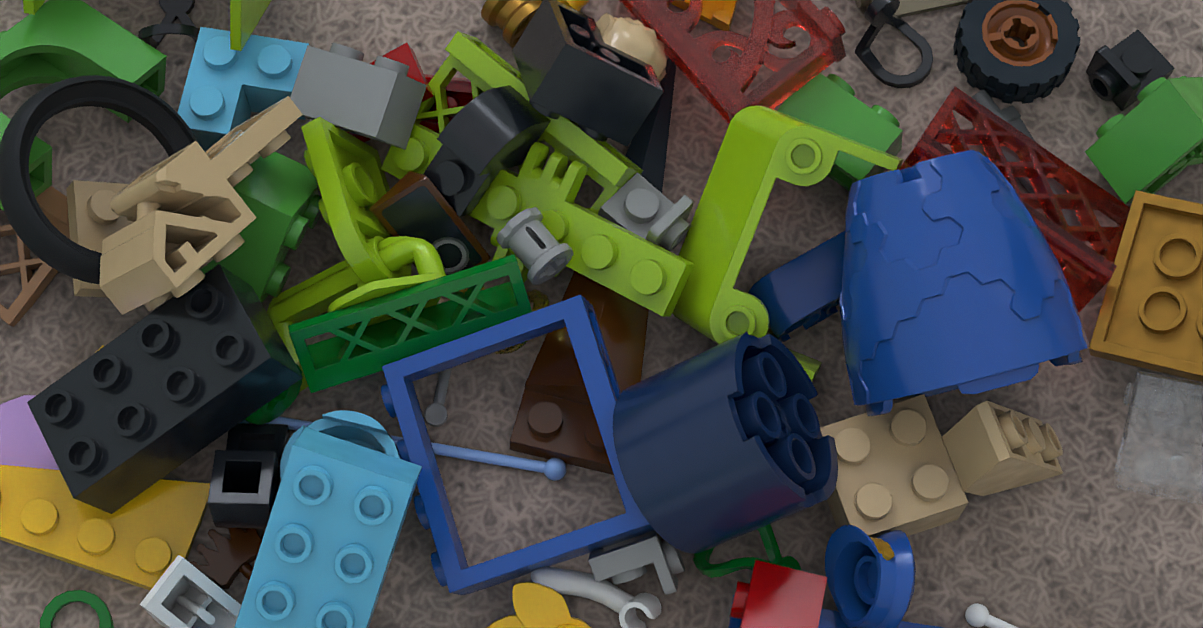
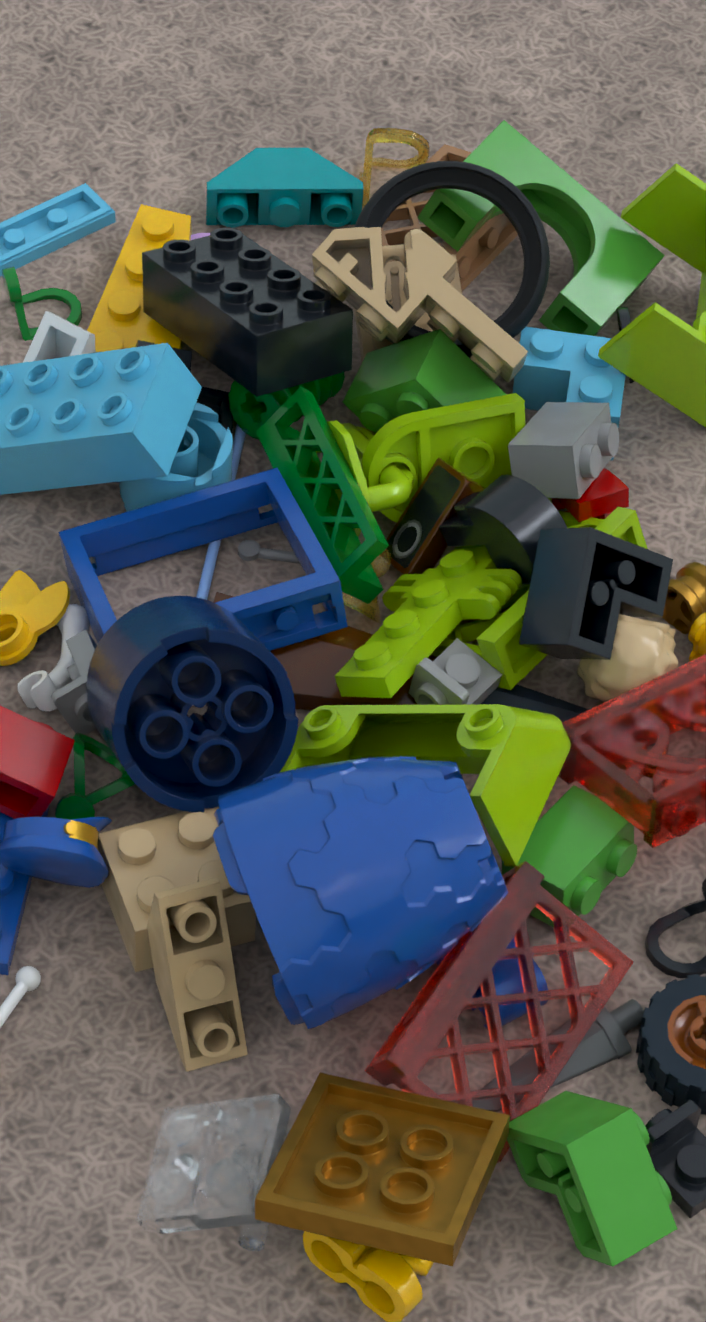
camera: 85 degrees right, 20 degrees down
(534, 245) = (401, 568): light grey bush -> none

